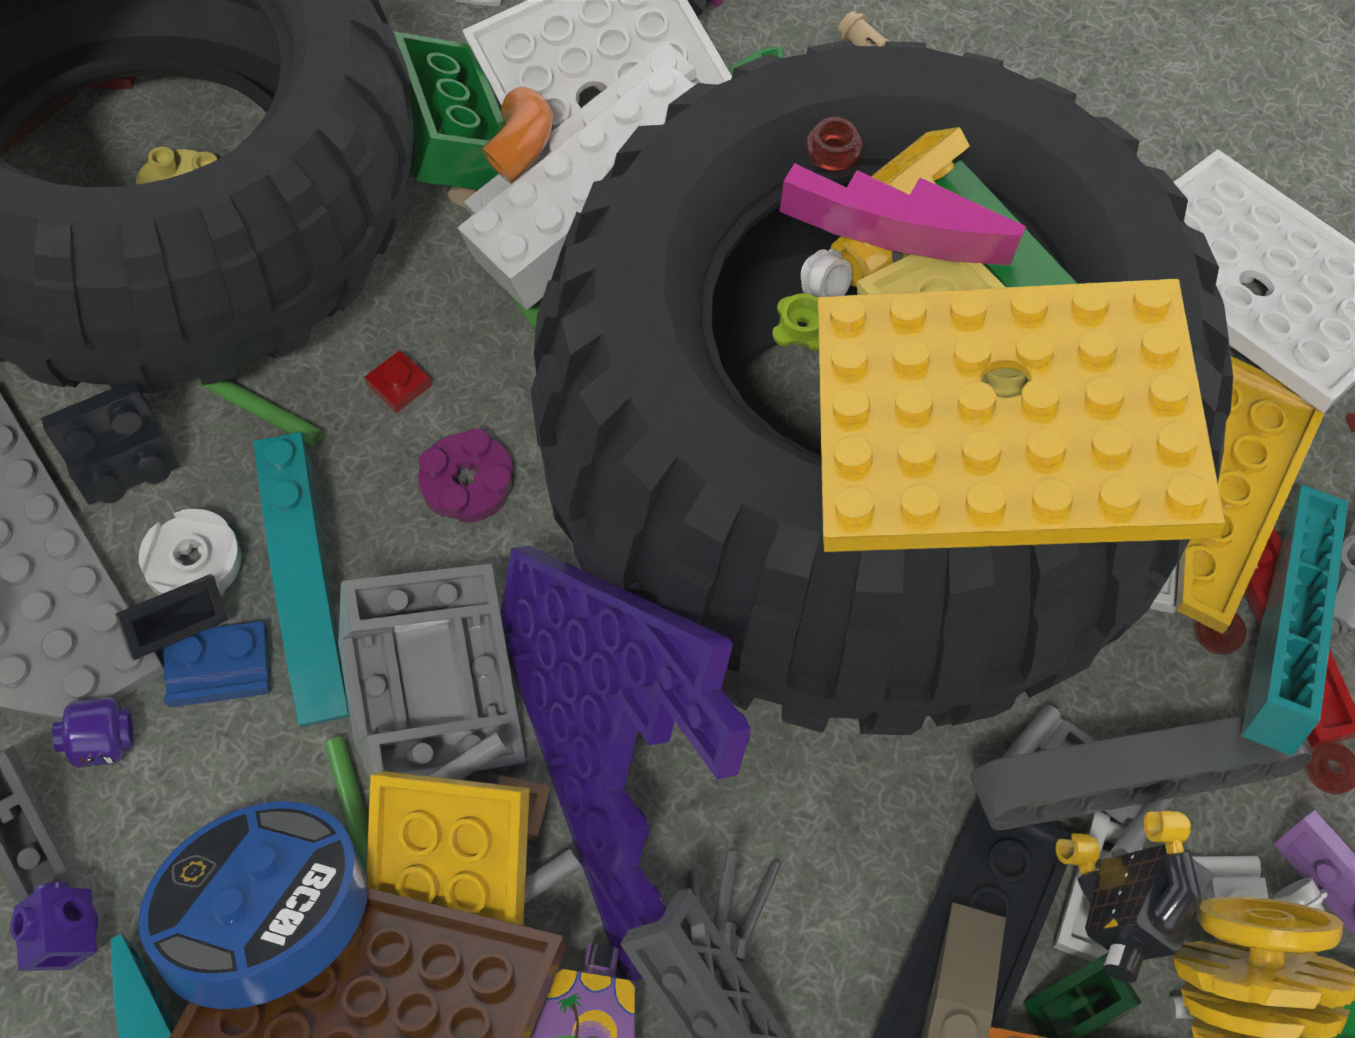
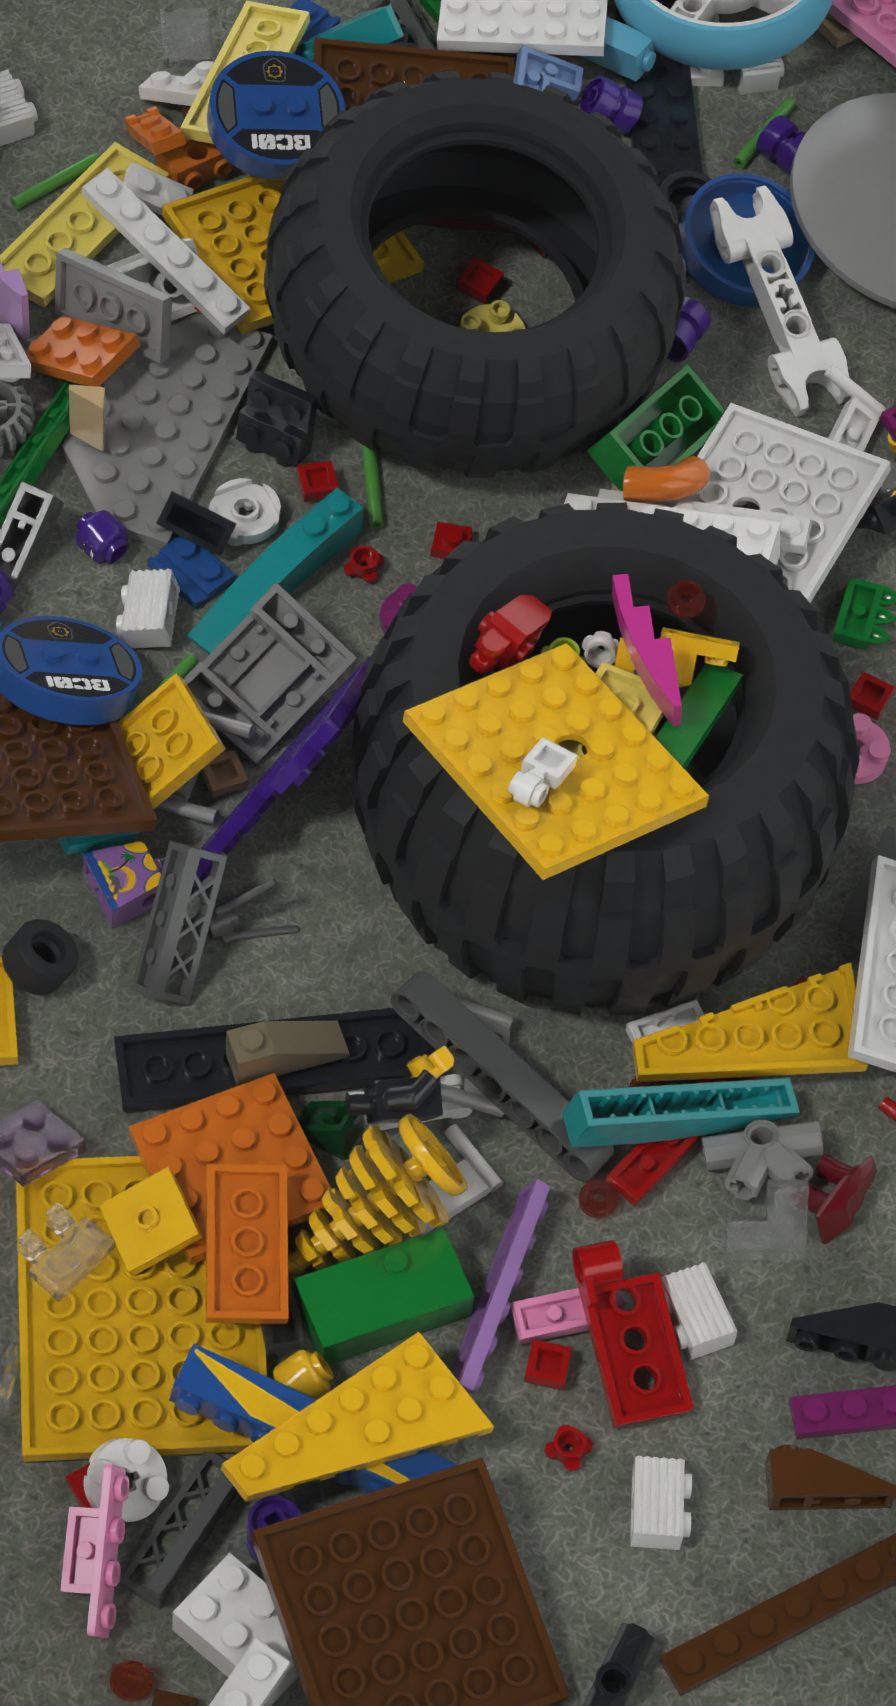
camera: 50 degrees right, 5 degrees down
(109, 153) = (480, 280): none -> red plate
(215, 458) = (316, 480): none -> red plate
(236, 745) = (149, 608): none -> white brick
(354, 469) = (366, 555): none -> red plate
(765, 349) = (509, 633): none -> red hinge
(1063, 417) = (541, 768): none -> white plate
(1304, 893) = (489, 1217): white plate -> none

